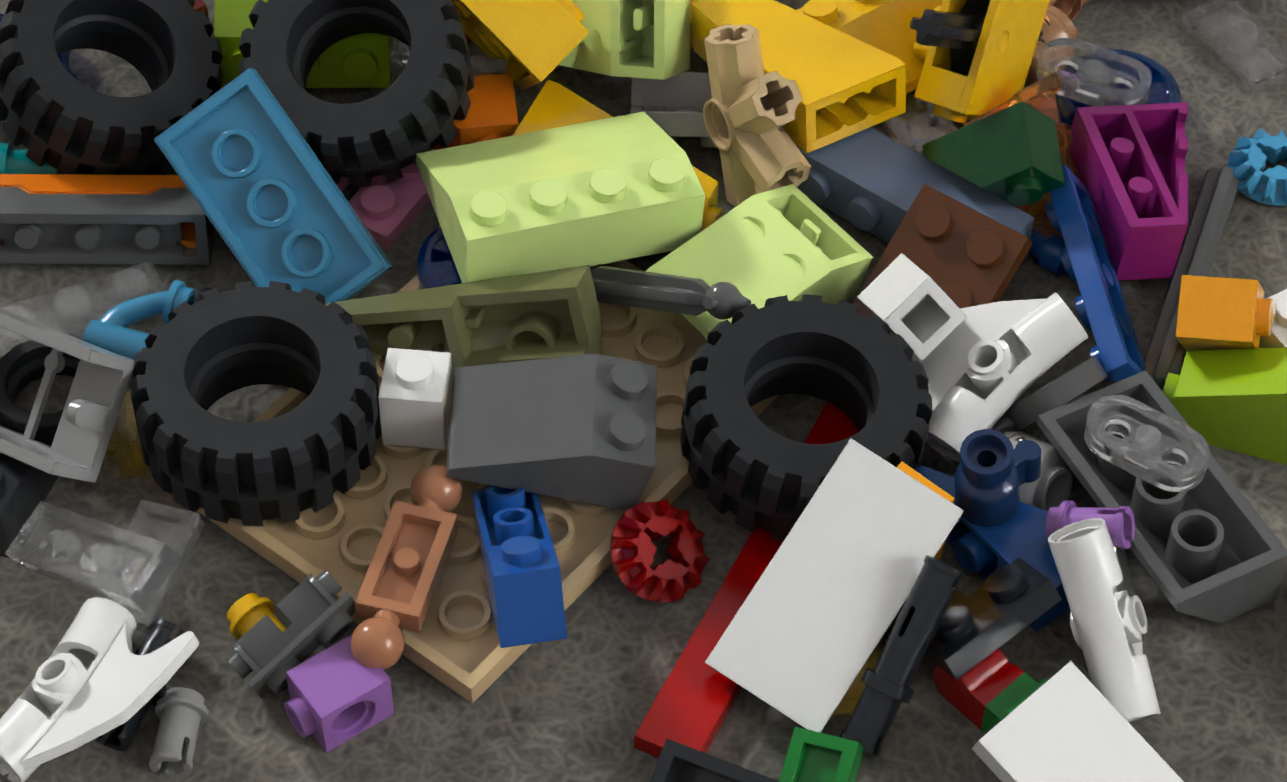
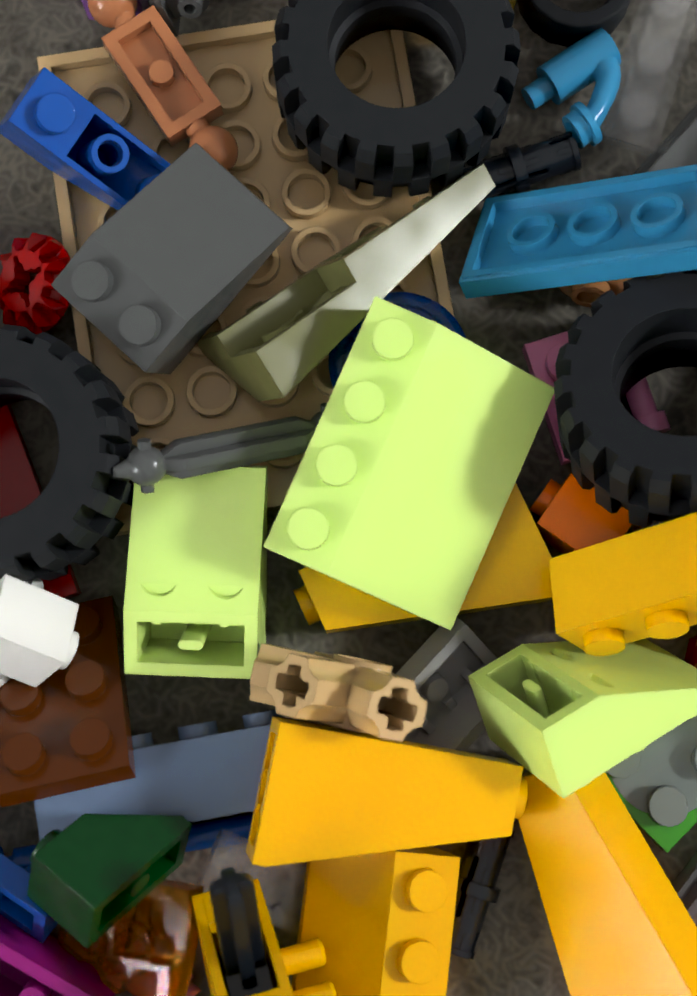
camera: 135 degrees right, 30 degrees up
(416, 398) = (304, 193): white brick -> none

